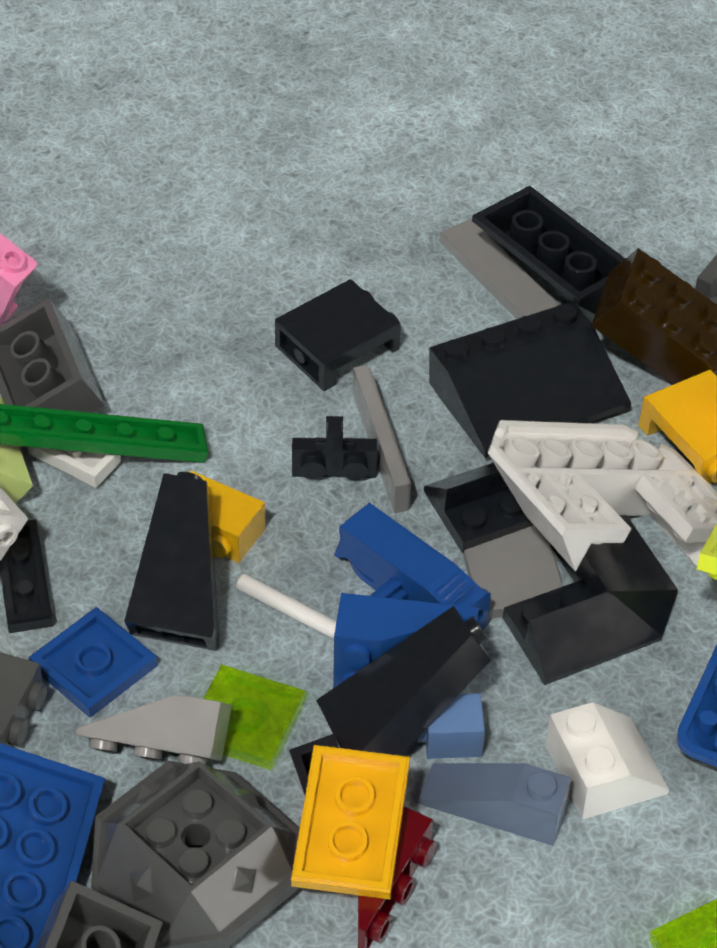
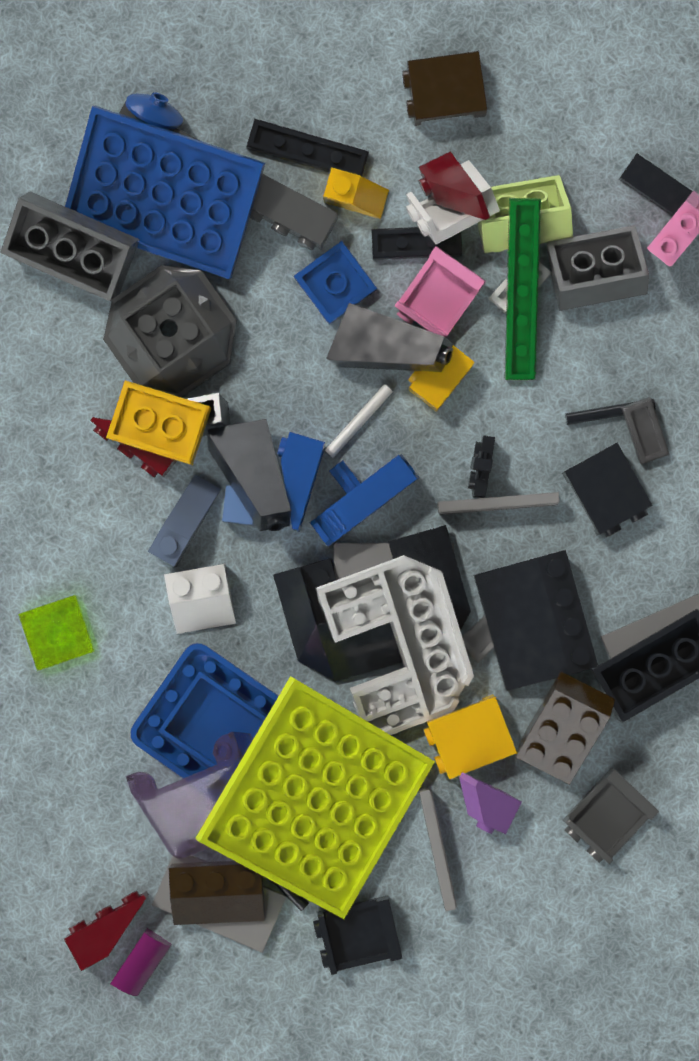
camera: 100 degrees right, 40 degrees up
(90, 530) = (439, 293): none -> bright pink panel
(172, 724) = (261, 321): light grey slope -> none
(233, 350) = (597, 413): none -> black bar
(249, 310) = (645, 430): none -> flat silver tile
(259, 715) = (275, 376): clear neon green tile -> none

